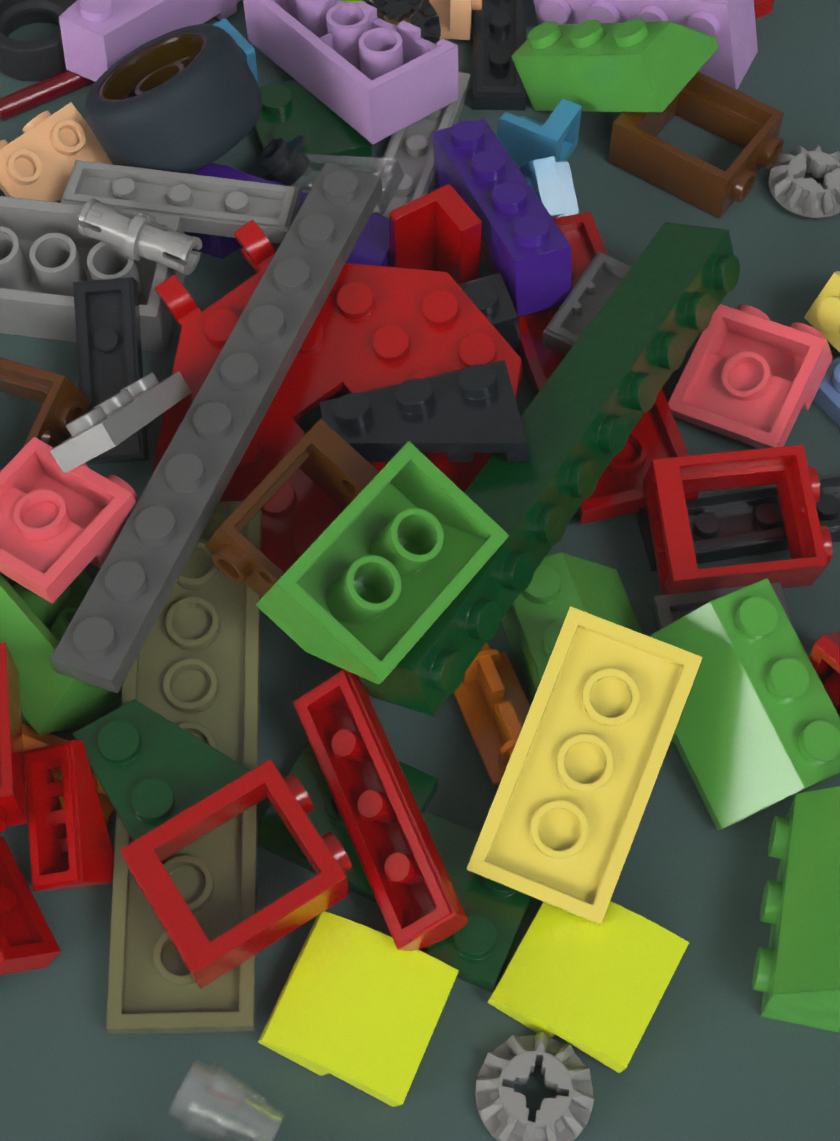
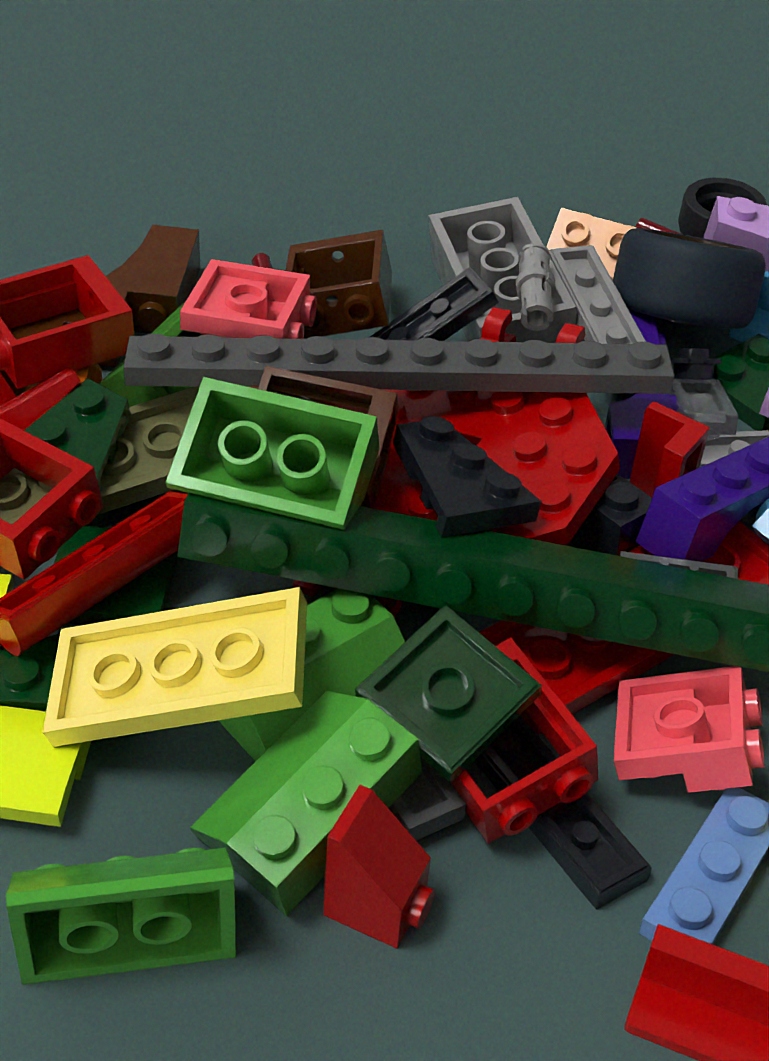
camera: 65 degrees right, 15 degrees down
(118, 418) = (348, 309): light grey plate -> none
(706, 534) = (450, 691): none -> dark green plate

